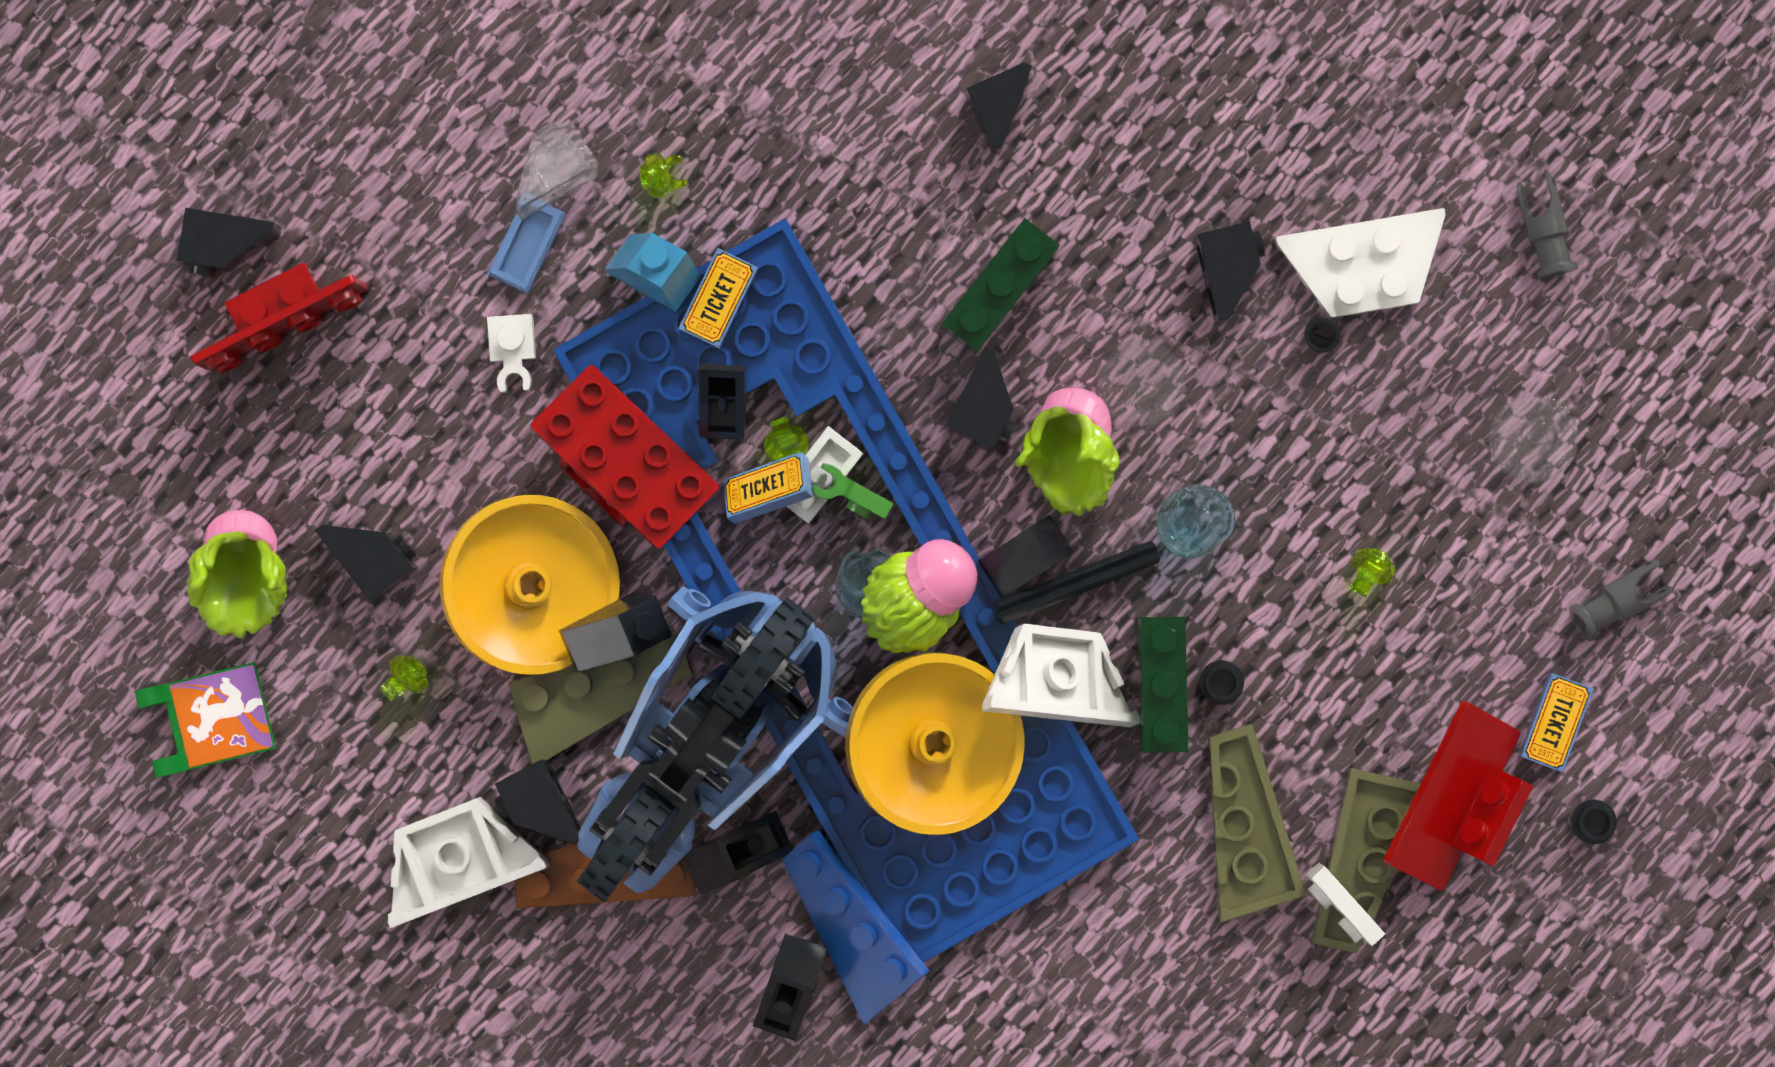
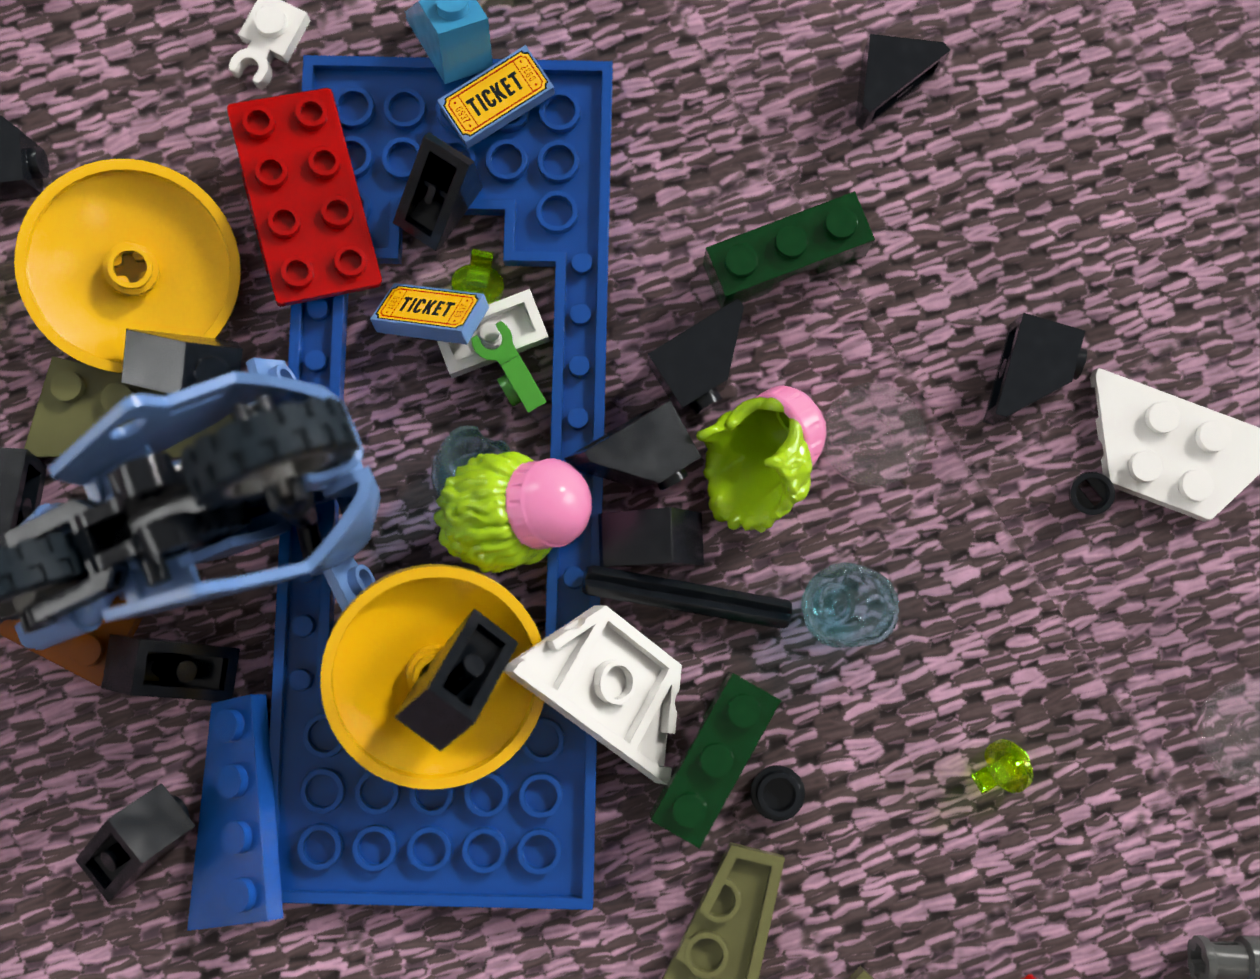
camera: 30 degrees right, 5 degrees down
(956, 736) = (457, 681): none -> black slope
(981, 497) = (641, 451): none -> black slope

